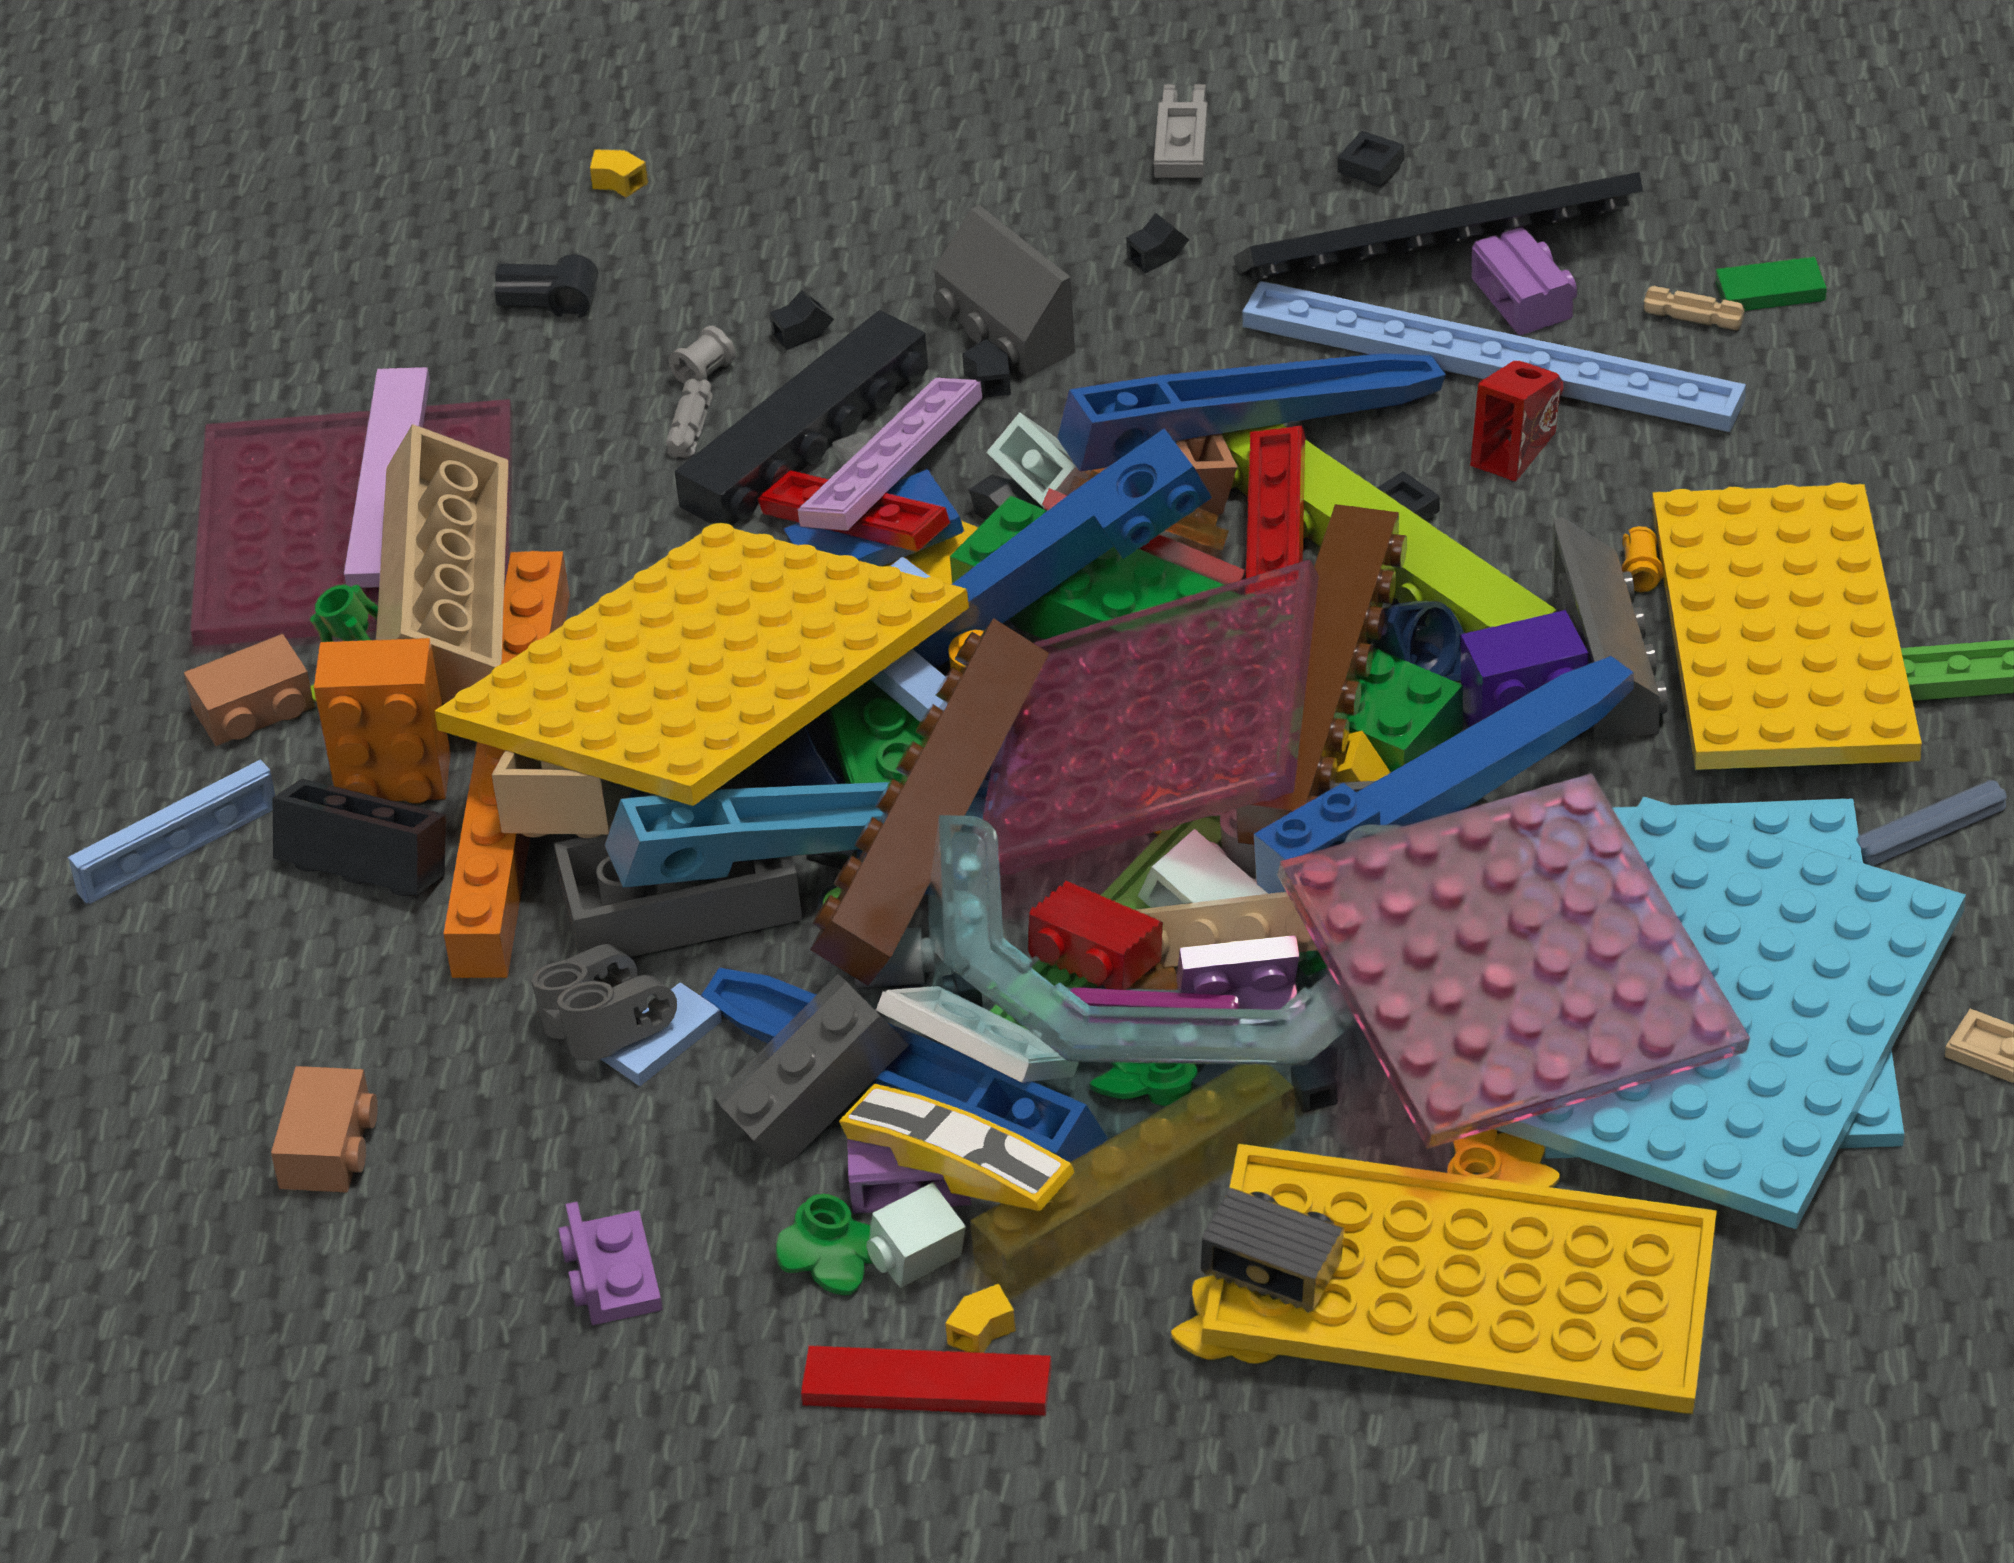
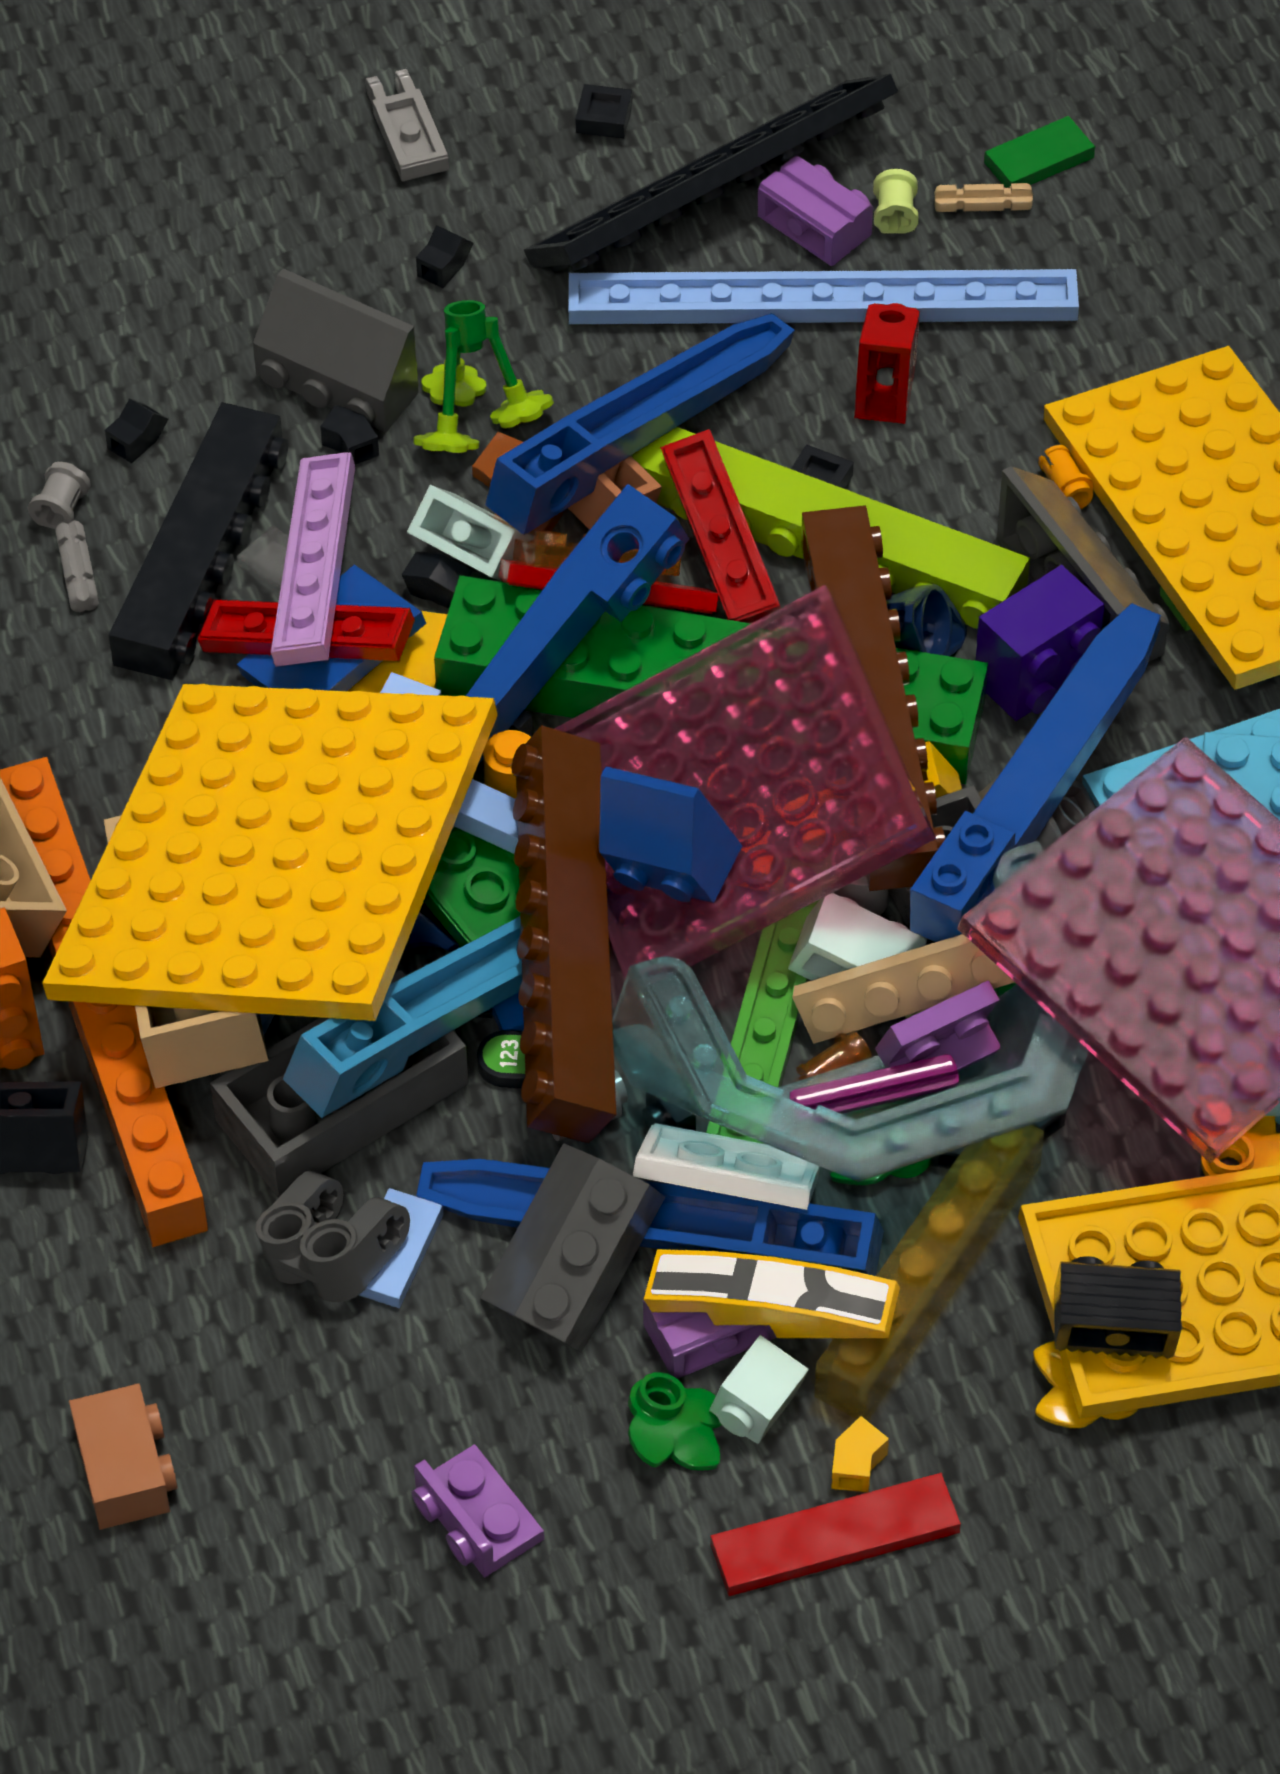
camera: 25 degrees left, 10 degrees up
(1053, 735) = (663, 836): none -> blue slope
(1094, 937) = (784, 1029): red brick -> none
(1117, 293) = (460, 384): none -> plant
(1608, 285) = (895, 197): none -> yellowish green bush

